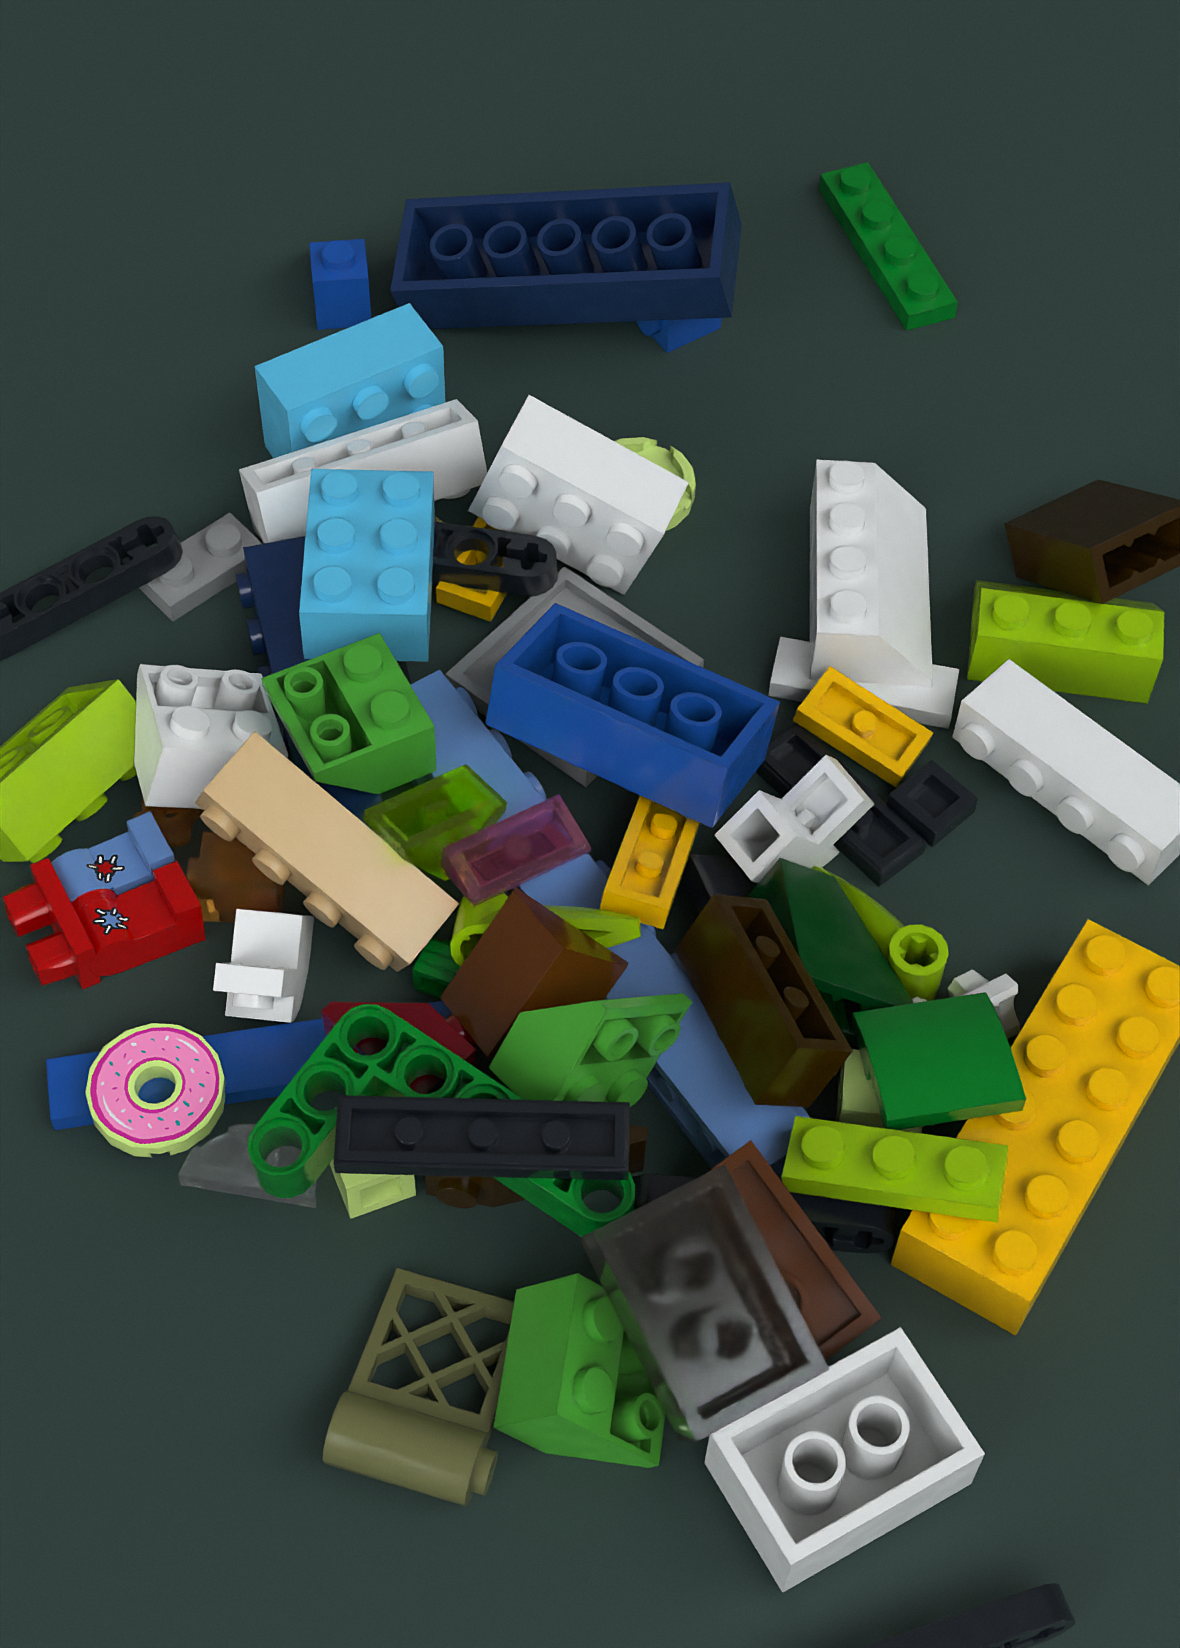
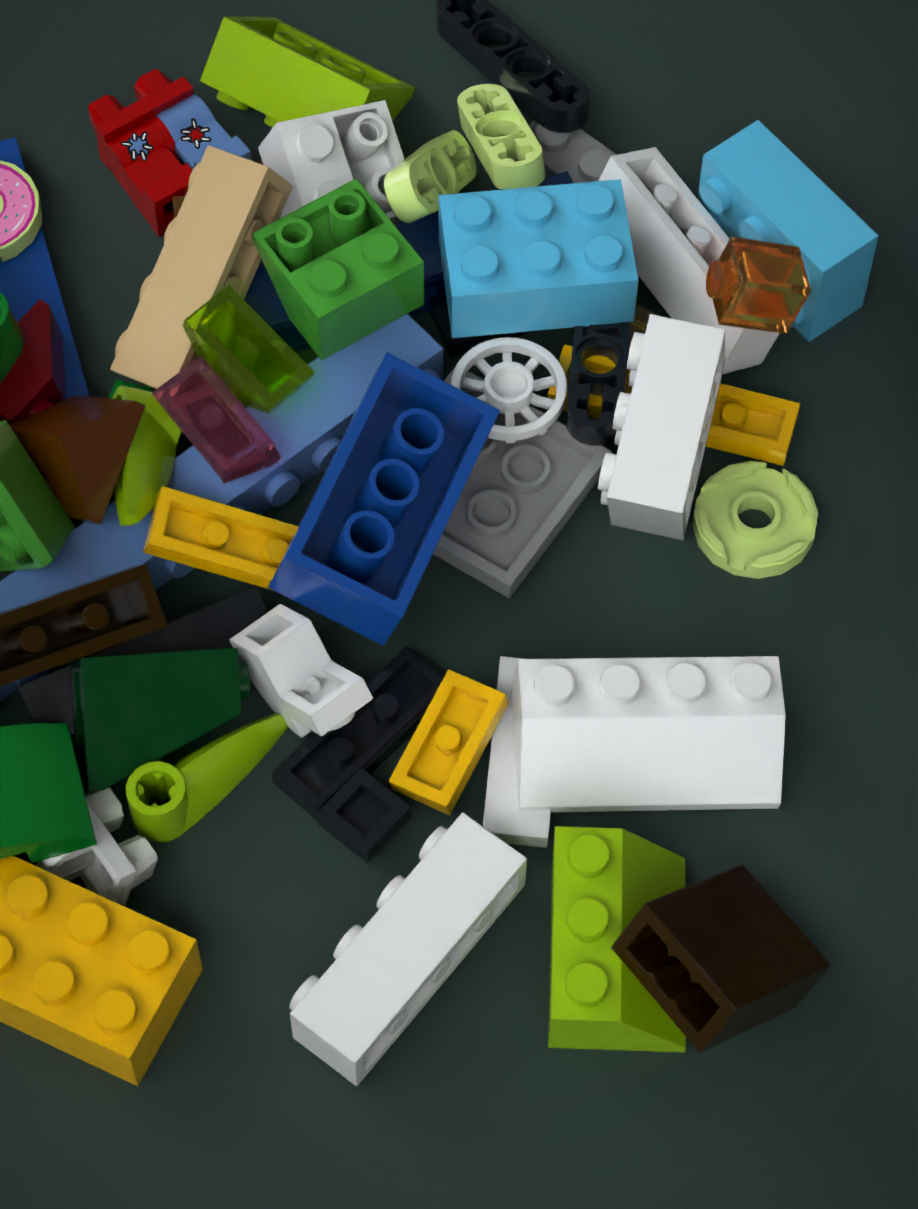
camera: 85 degrees right, 5 degrees up
(216, 588) = (501, 137): none -> yellowish green beam
(227, 653) = (432, 170): none -> yellowish green beam
(266, 965) = (97, 272): white brick -> none
(447, 393) = (758, 285): none -> clear orange brick
(486, 626) = (511, 385): none -> white wheel

